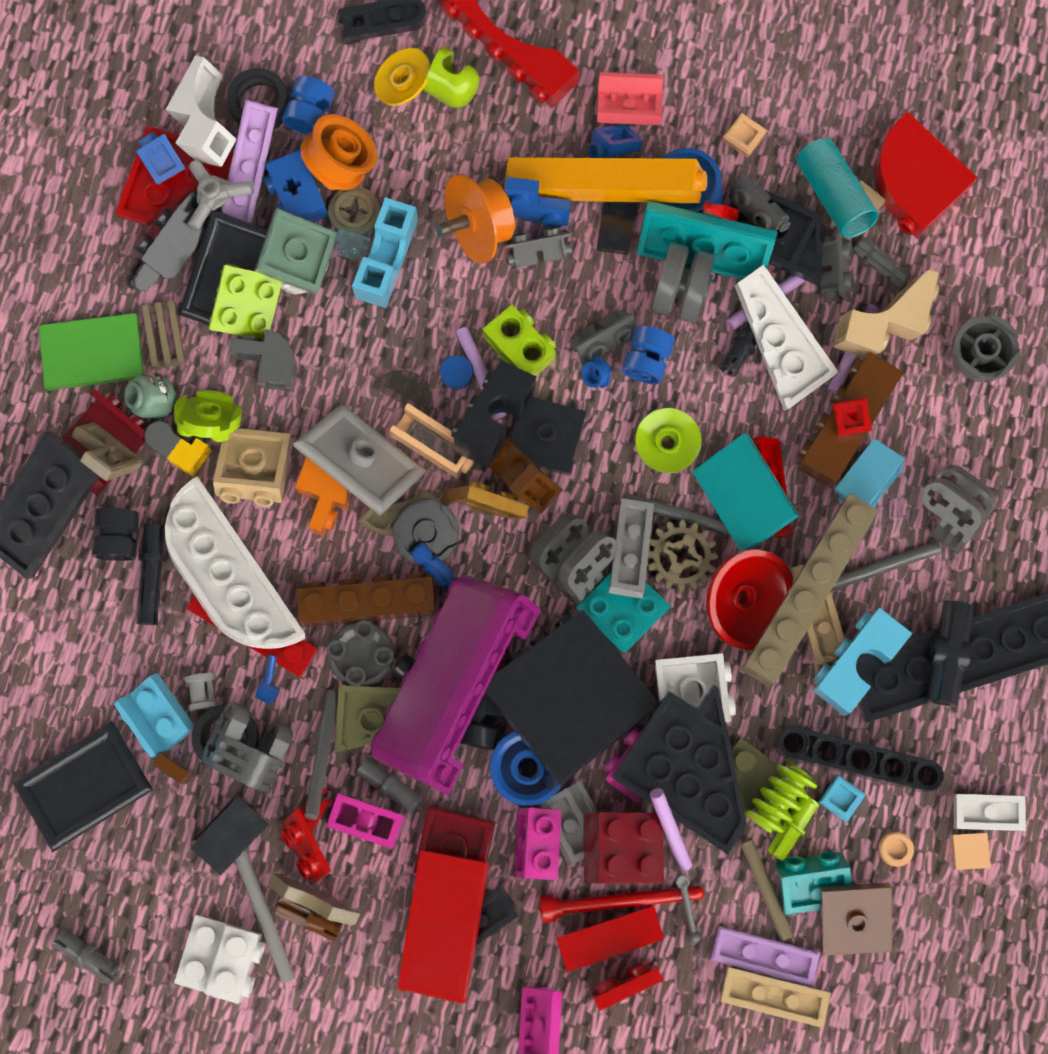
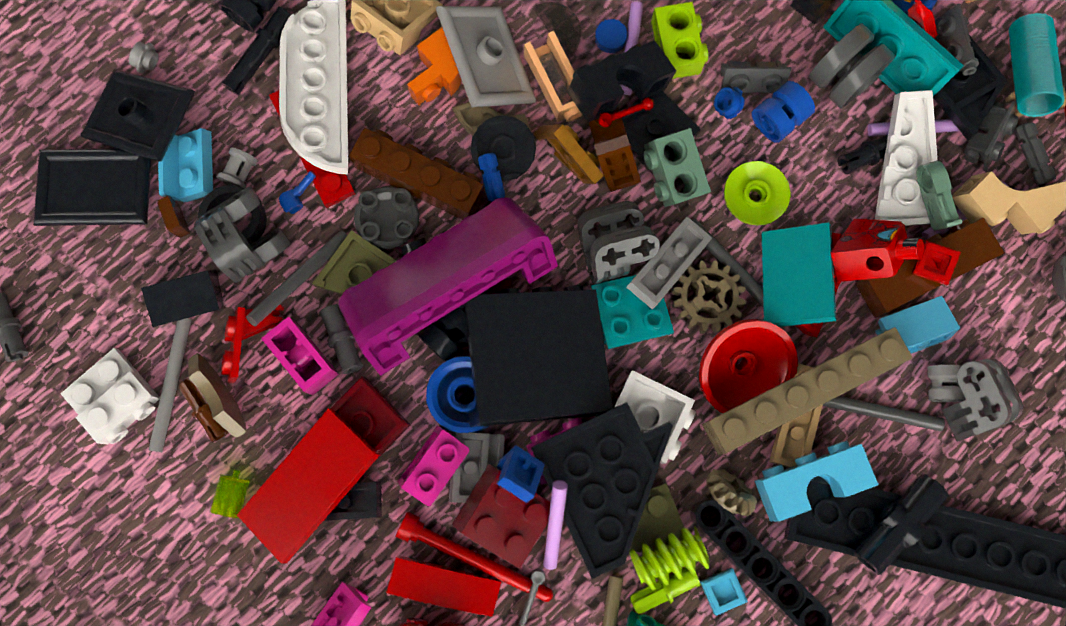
camera: 30 degrees right, 0 degrees up
(50, 642) = (143, 57): none -> light grey plate
(82, 698) = (138, 114): none -> black piece
(379, 976) = (229, 495): none -> clear neon green piece
(502, 456) = (606, 119): none -> red hinge
(591, 453) = (685, 165): none -> sand green brick
(617, 804) = (520, 473): none -> blue bracket
(794, 435) = (873, 250): none -> red torso
(798, 712) = (731, 492): none -> dark tan gear
(819, 353) = (936, 194): none -> sand green piece
(913, 506) = (944, 375): none -> light grey wheel

